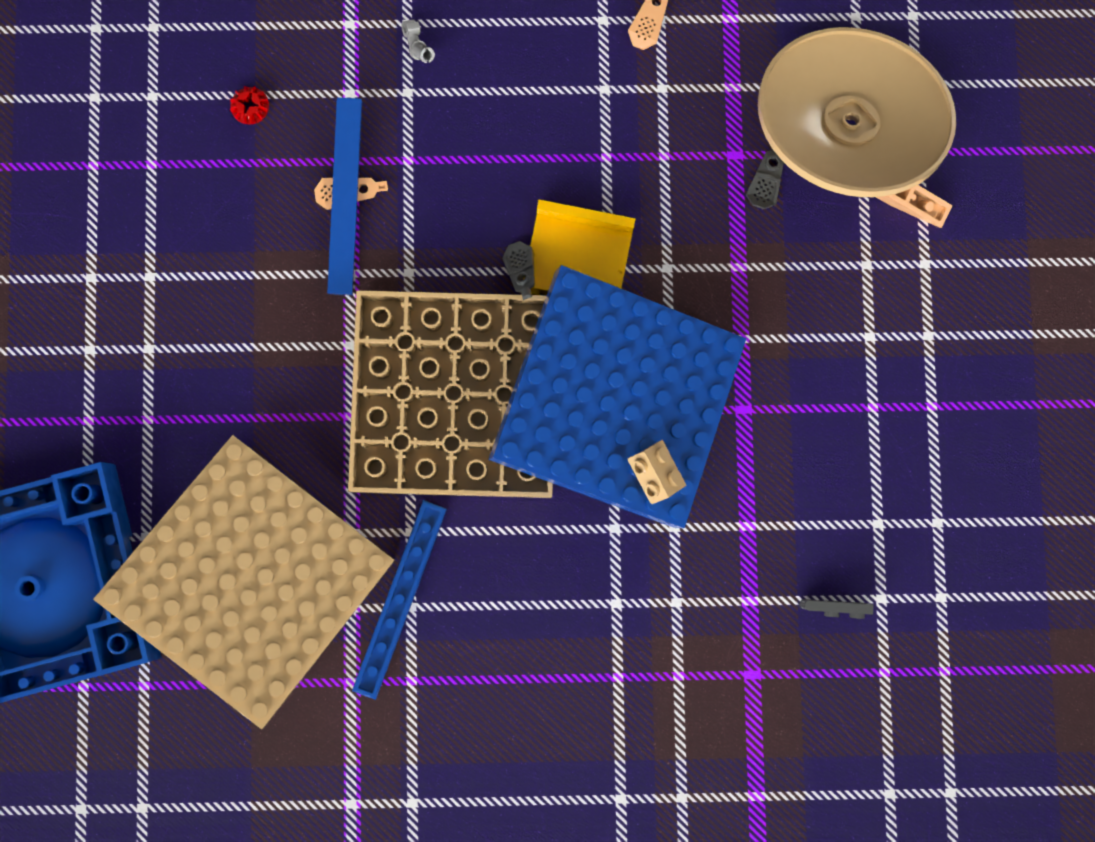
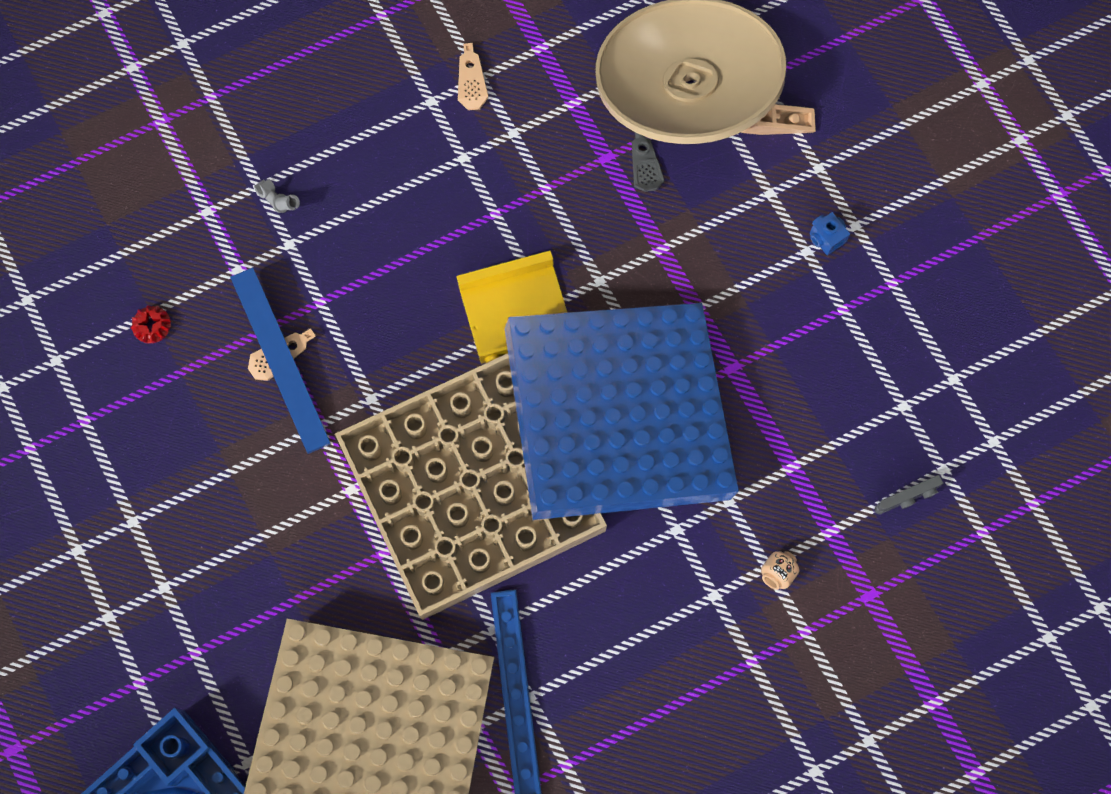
camera: 25 degrees left, 10 degrees down
(520, 265) = (468, 341): dark grey piece -> none
(657, 472) = (688, 452): tan bracket -> none
(685, 613) = (780, 570): none -> light nougat head
(899, 331) = (829, 233): none -> blue brick

